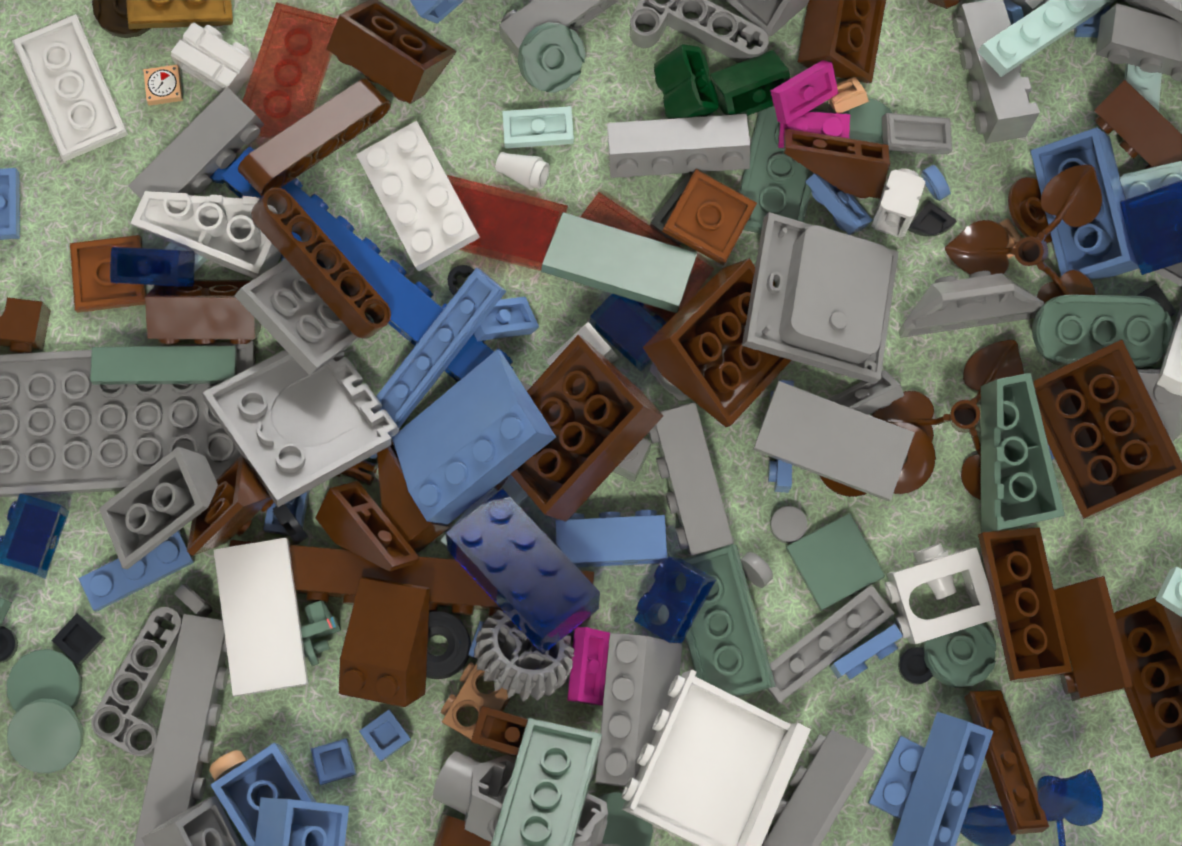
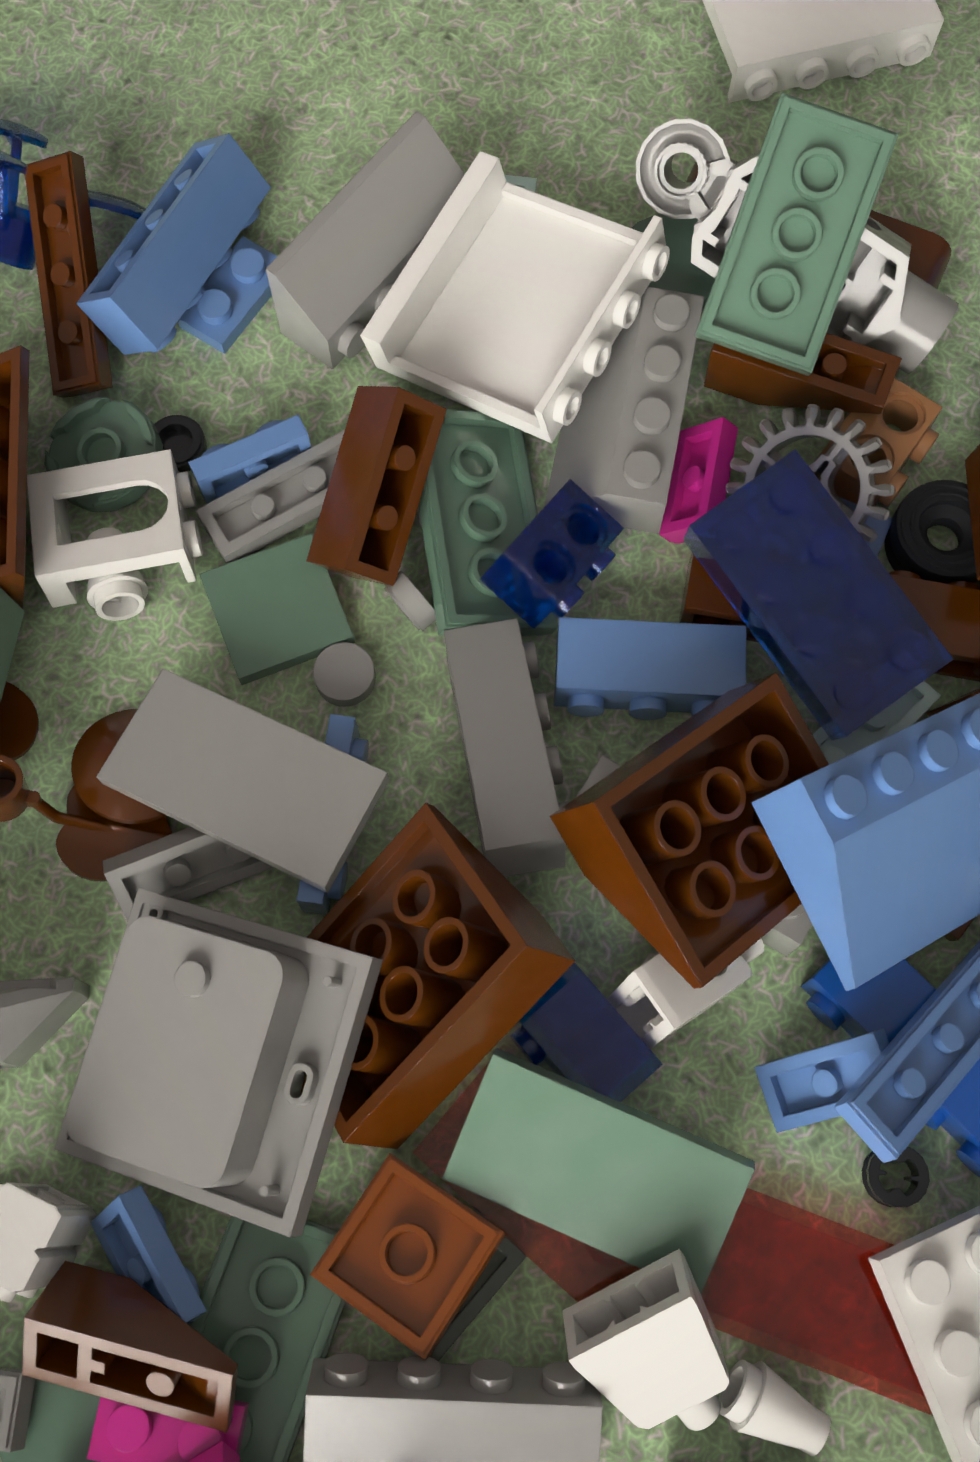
camera: 175 degrees left, 5 degrees down
(587, 186) = (650, 1346): none -> white torso
(785, 626) = (376, 484): none -> reddish brown brick

